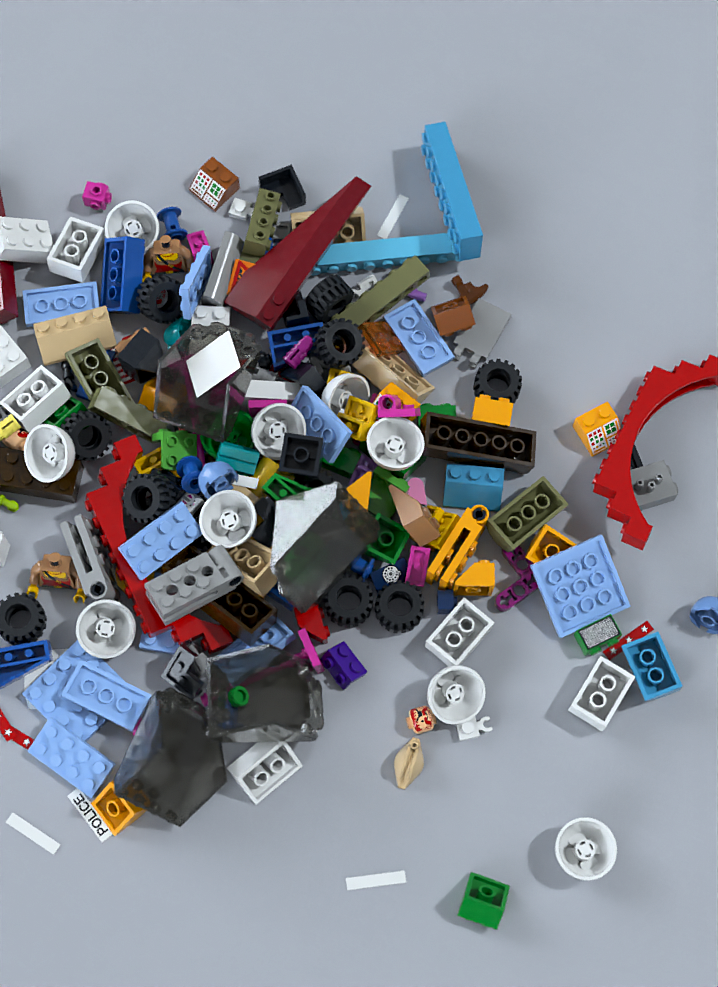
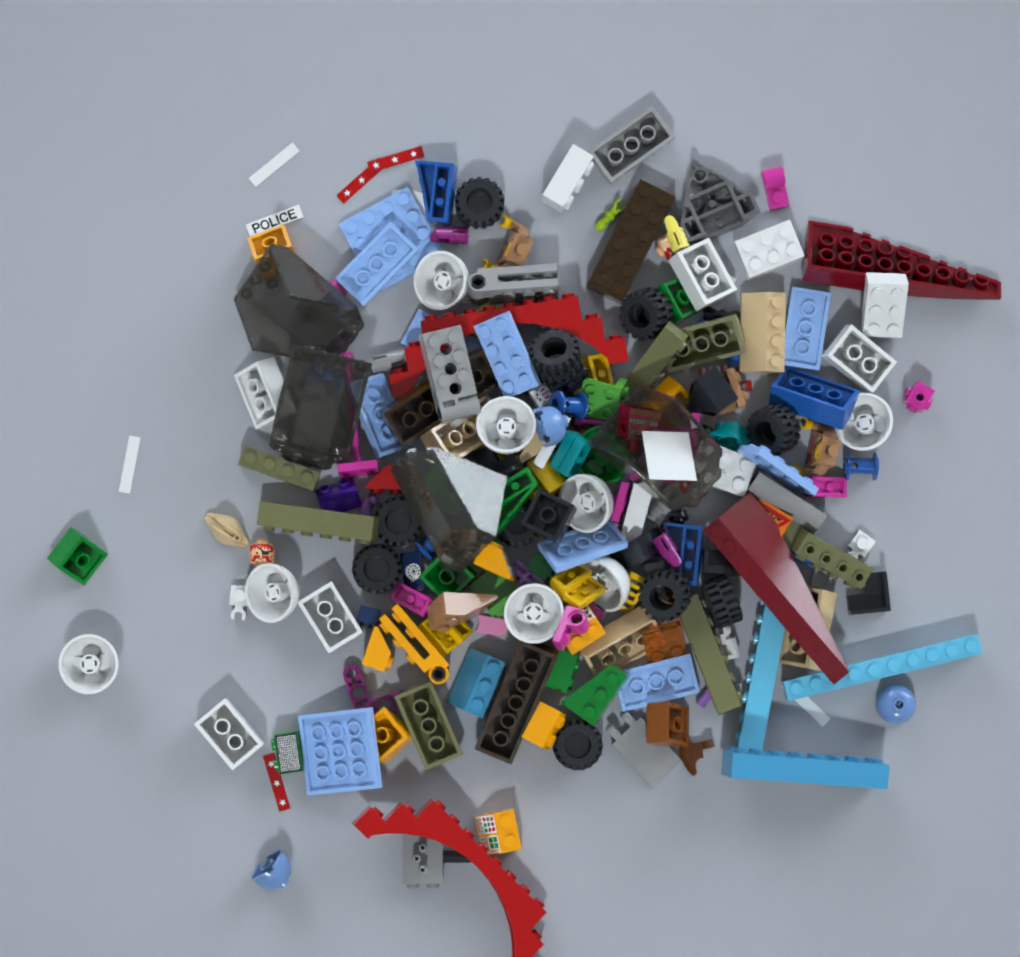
camera: 105 degrees right, 15 degrees up
(49, 452) = (629, 271): white piece -> none
(59, 636) = (450, 235): none -> magenta hinge
(71, 757) = (330, 217): light blue plate -> none
(178, 672) = (375, 337): black panel -> none
(191, 409) = (633, 421): none -> torso
(214, 184) = (896, 523): dark orange slope -> none
(238, 696) = (332, 385): green tile -> none
(334, 728) = (279, 468): none -> olive brick
(341, 160) = (885, 667): none -> medium azure brick
(345, 635) = (368, 503): none -> medium lavender arm
(369, 145) = (887, 700): none -> medium blue cylinder
(373, 672) = (320, 521): none -> olive brick
(446, 378) = (597, 694): none -> green wedge
(652, 667) = (238, 791): dark azure slope -> none

